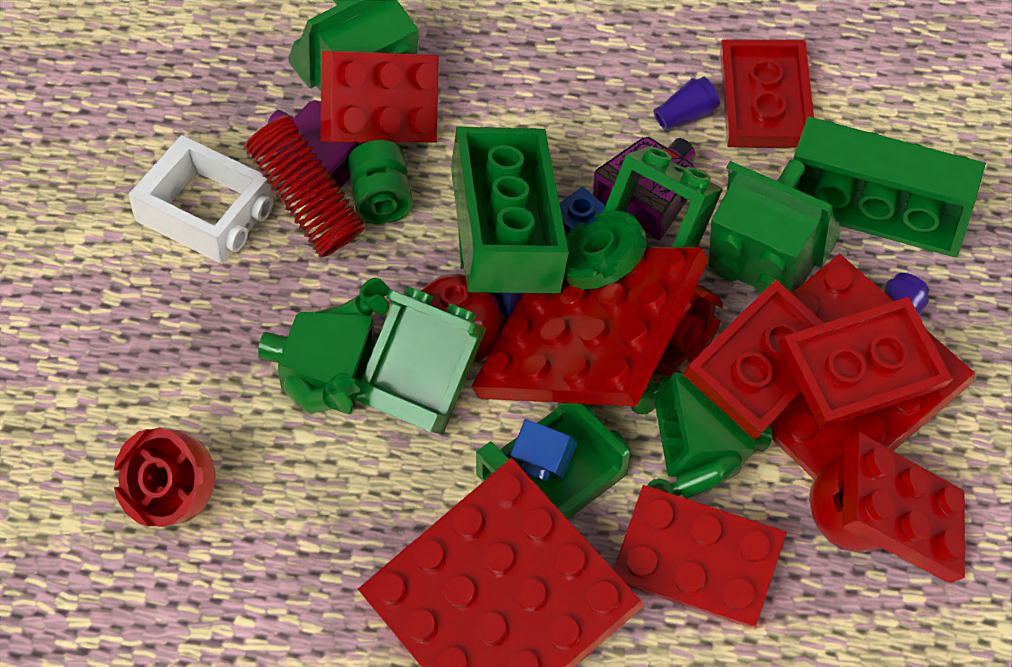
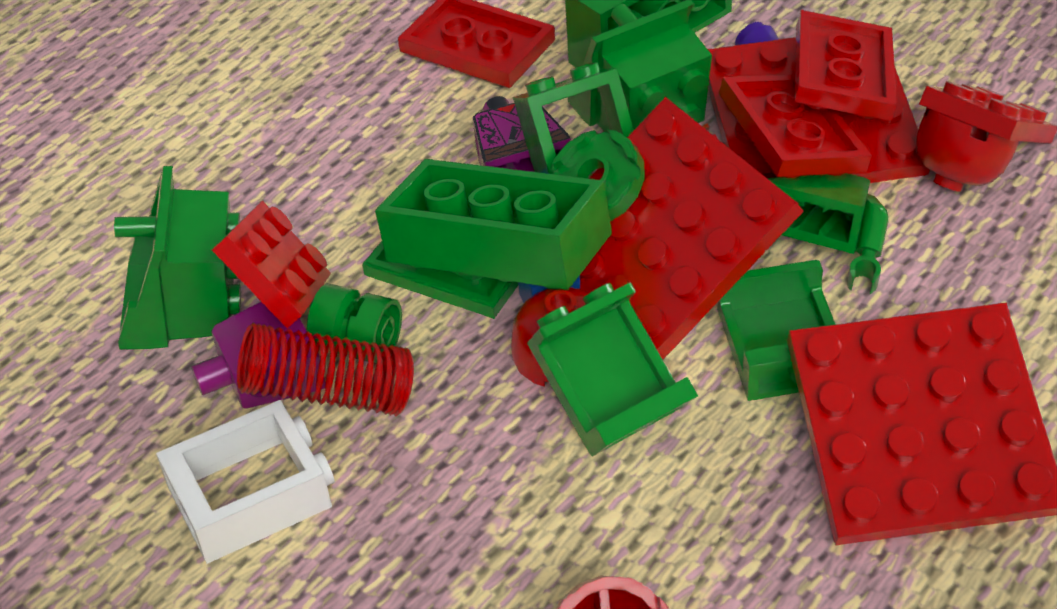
camera: 55 degrees left, 10 degrees down
(327, 350) = (538, 448): green torso -> none
(543, 451) = (773, 316): blue plate -> none
(689, 103) = (446, 85): dark purple cone -> none
(699, 556) = (950, 264): red plate -> none

